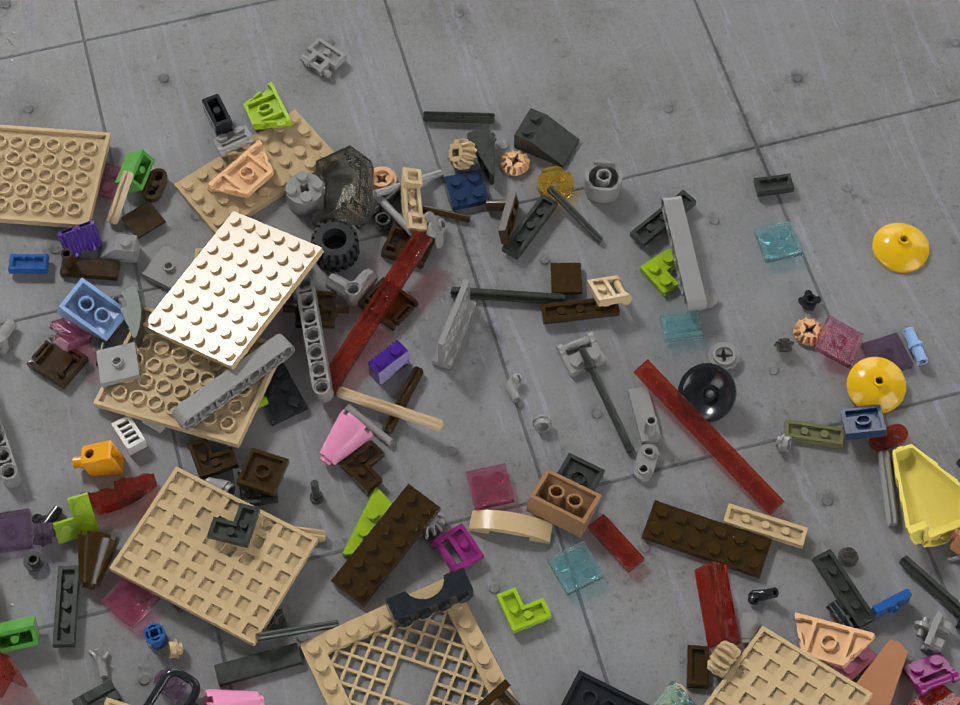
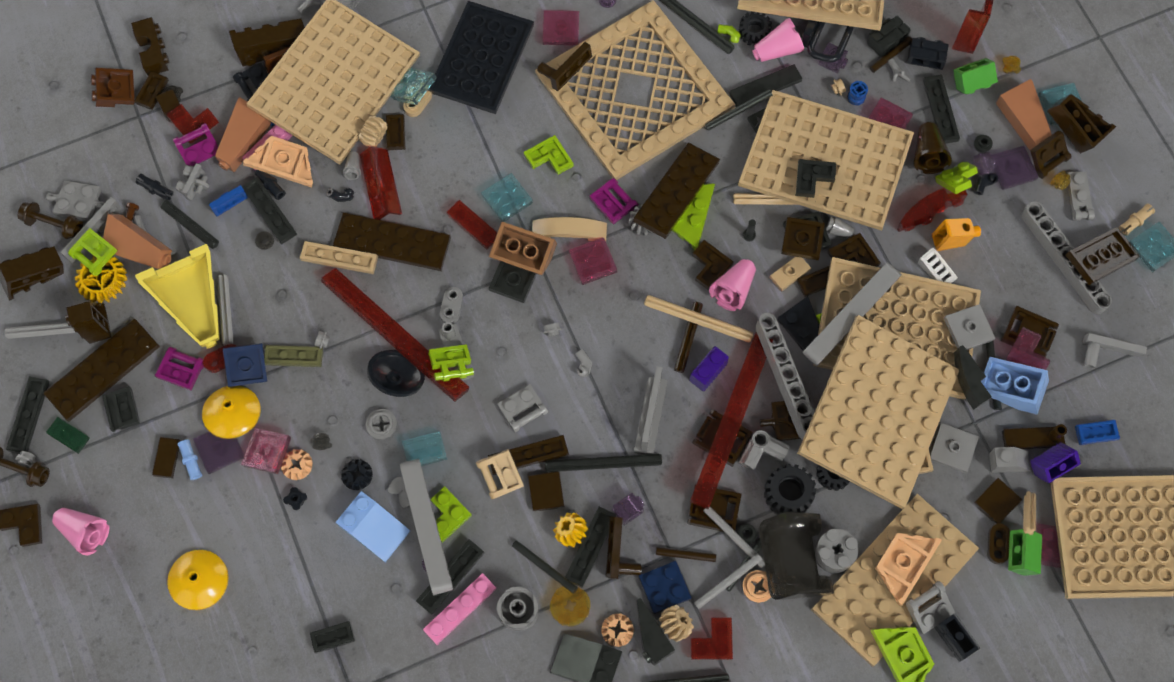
camera: 175 degrees right, 10 degrees up
(59, 674) = (927, 53): none -> black brick
(114, 677) = (891, 54): none -> dark brown bar
(259, 439) = (813, 282): none -> dark brown tile
(287, 447) = (790, 273): none -> tan plate
(369, 425) = (716, 309): light grey bar -> none
(406, 609) = (649, 133): black arch -> none
(411, 199) = (719, 550): tan slope -> none
(430, 137) = (718, 646): none -> clear red plate
(435, 228) = (690, 529): light grey plate -> none
(490, 251) = (629, 508): none -> clear purple brick
(547, 238) = (570, 529): none -> yellow gear
(590, 366) = (511, 389): pearl dark grey bar -> none
(650, 399) = (451, 357): none -> lime plate
(652, 196) = (459, 609): none -> bright pink plate
(735, 267) = (373, 526): none -> light blue slope
(755, 321) = (361, 481): none -> black gear
(778, 242) = (327, 564): clear light blue plate -> none
(934, 428) = (178, 374): none -> magenta plate
(939, 353) = (166, 458): none -> dark brown tile

